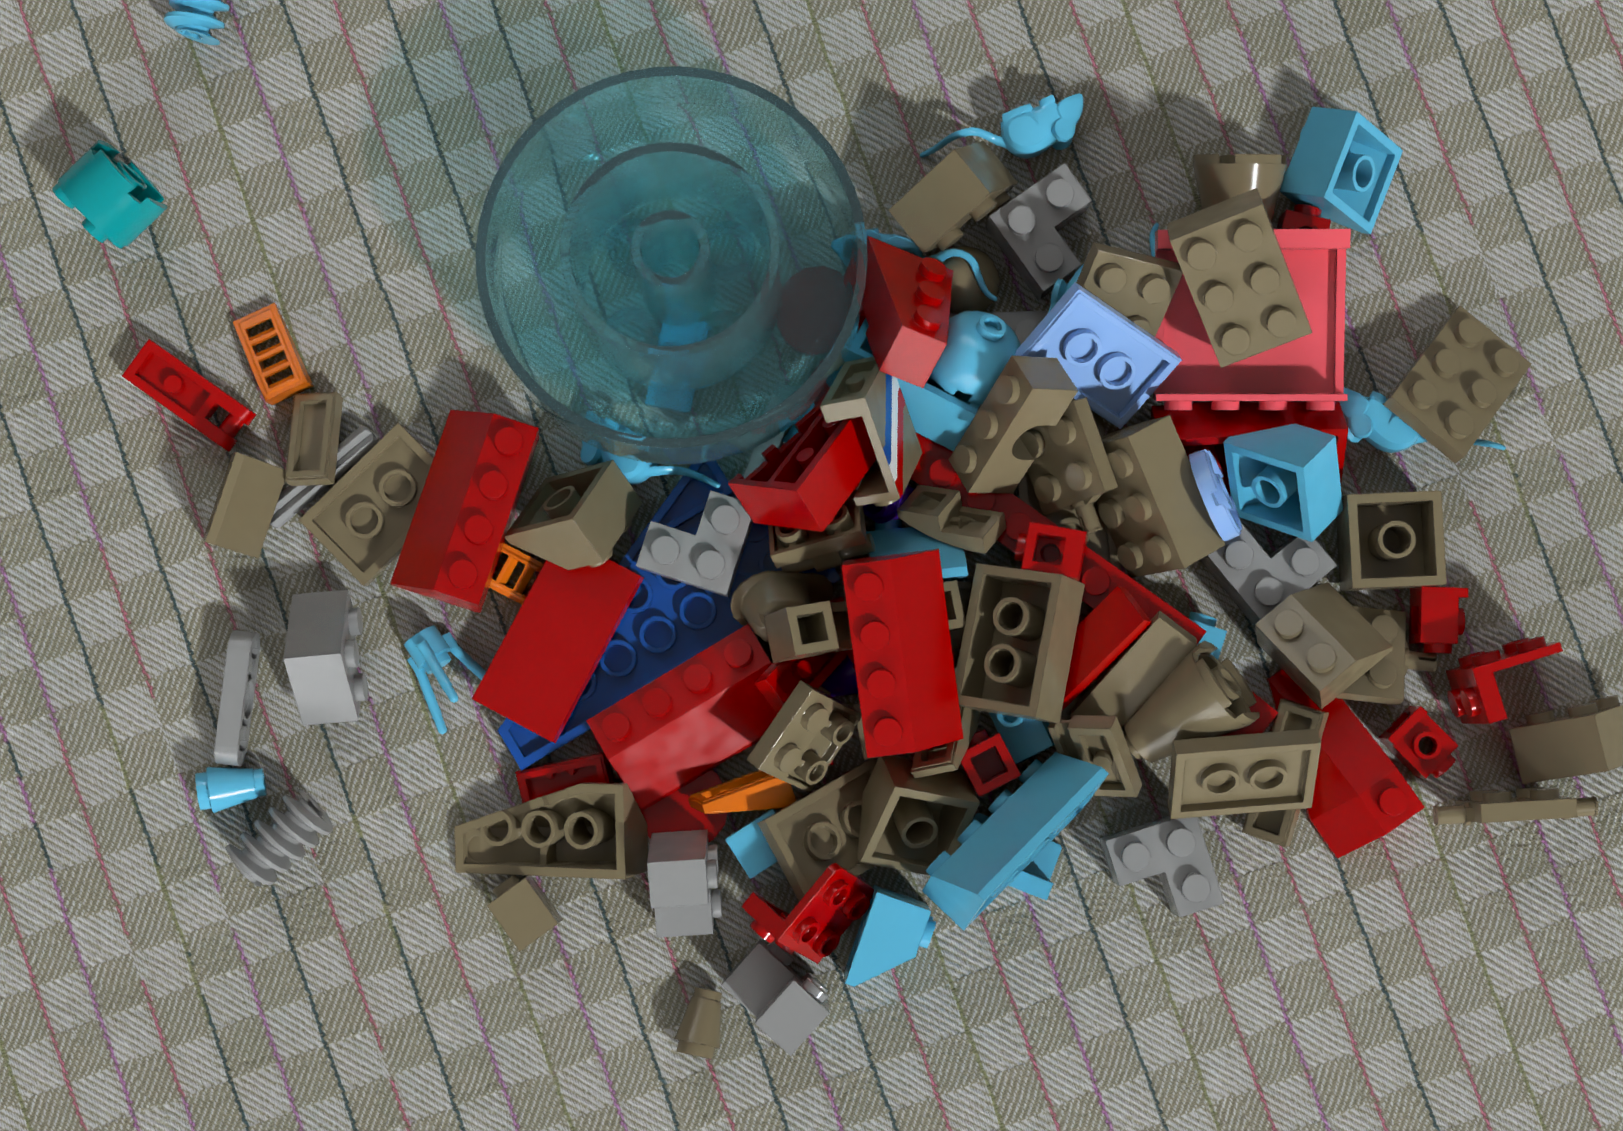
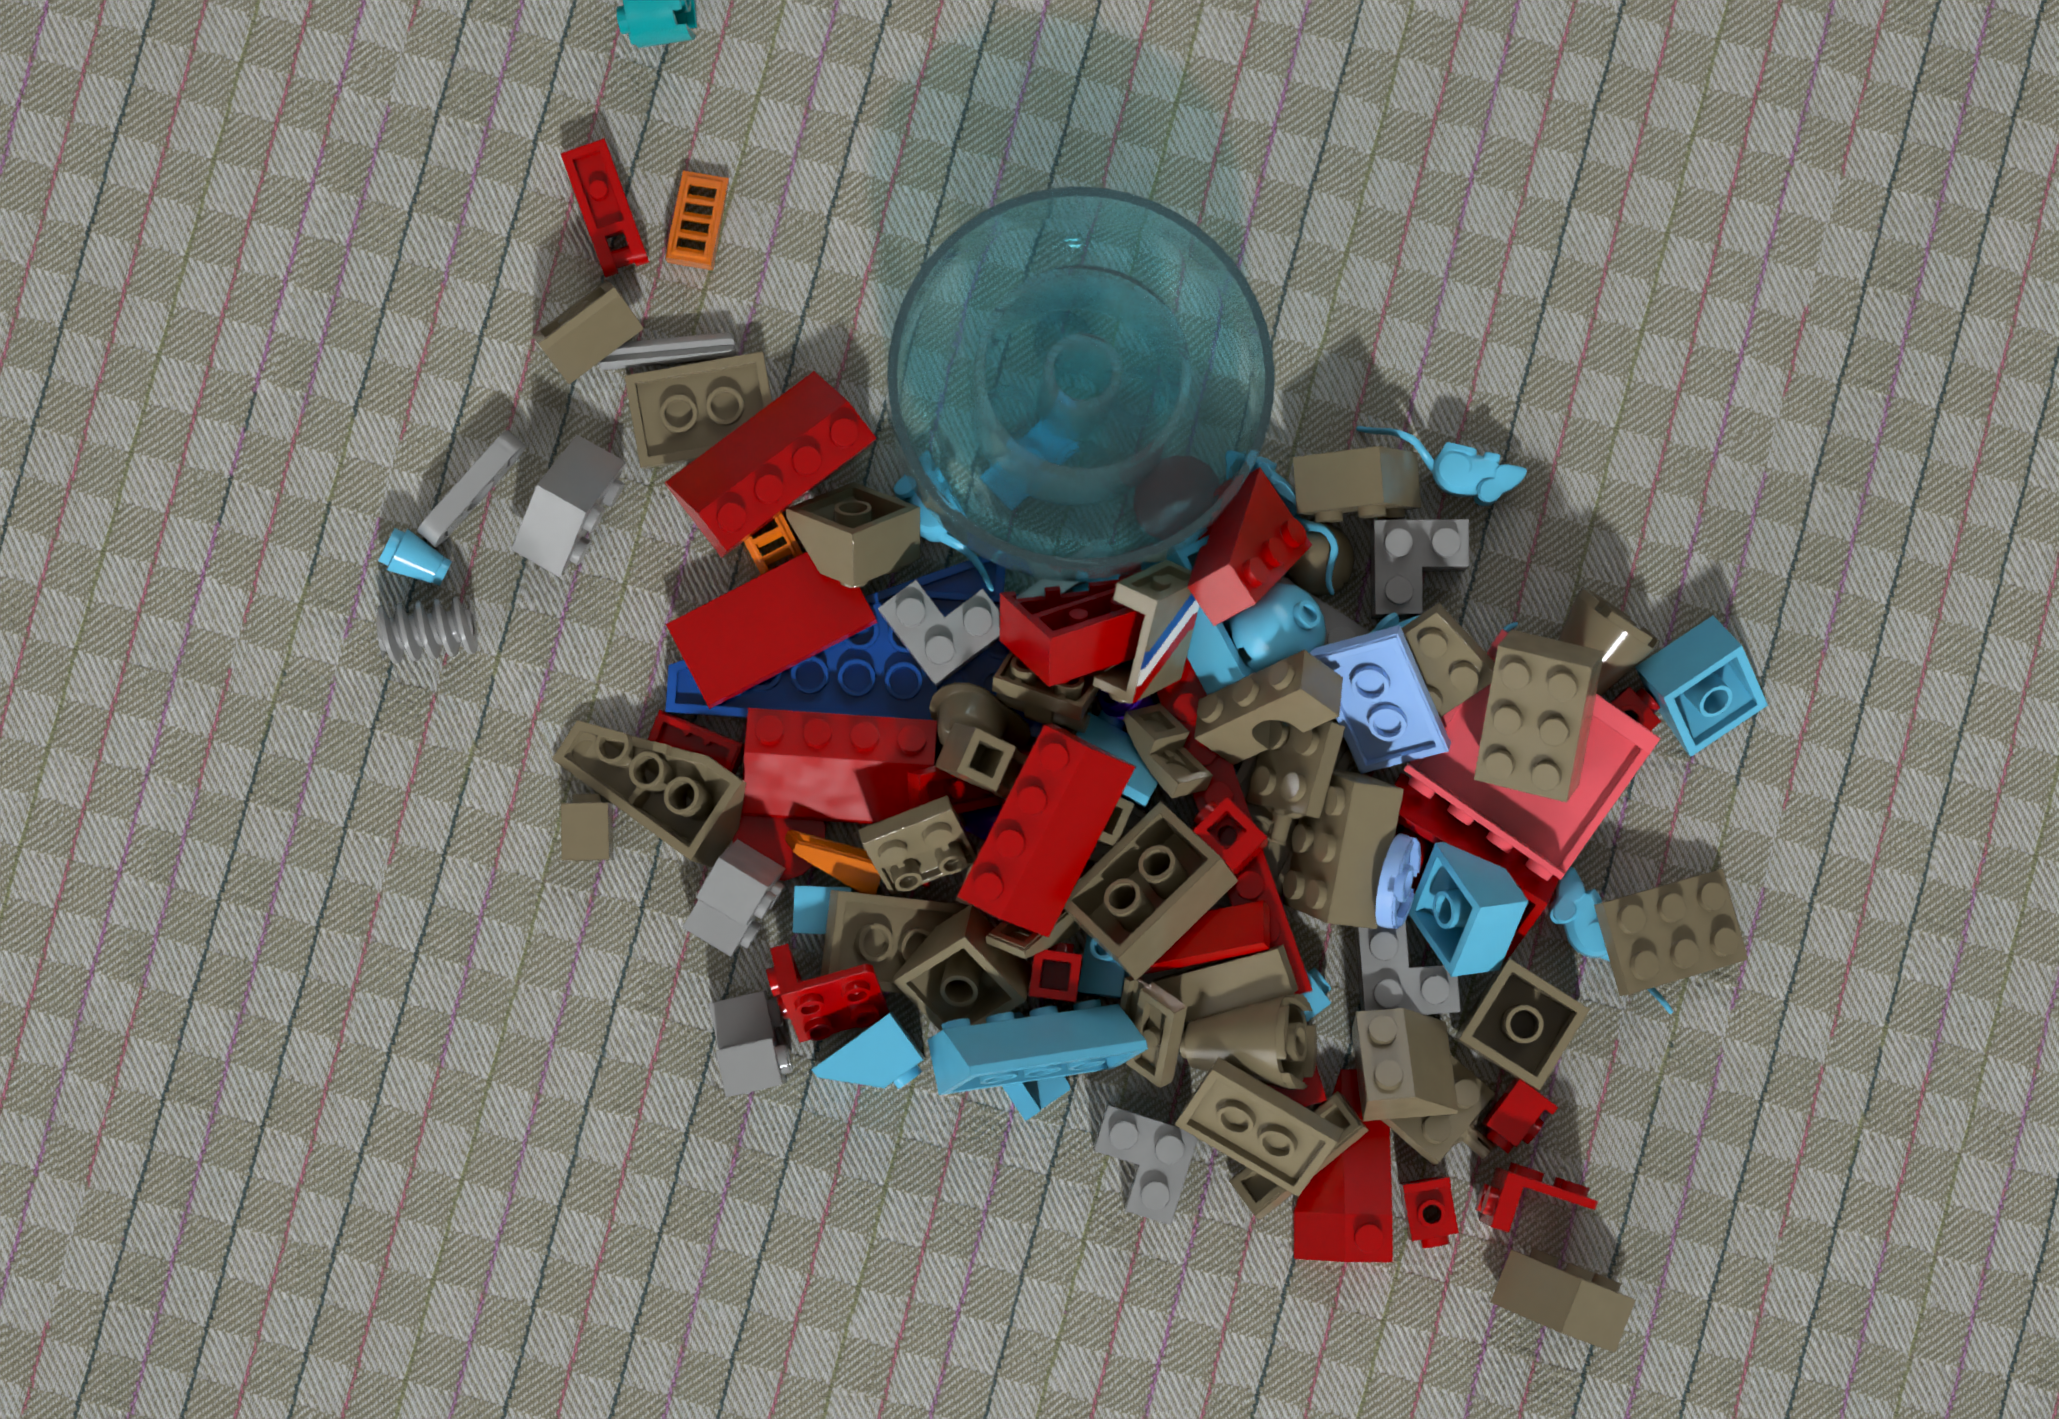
camera: 30 degrees right, 0 degrees up
(314, 439) = (683, 316): dark tan tile -> none
(429, 655) = (656, 561): medium azure plant -> none
(701, 1025) = (667, 1027): dark tan cone -> none
(1500, 806) = (1485, 1322): dark tan plate -> none

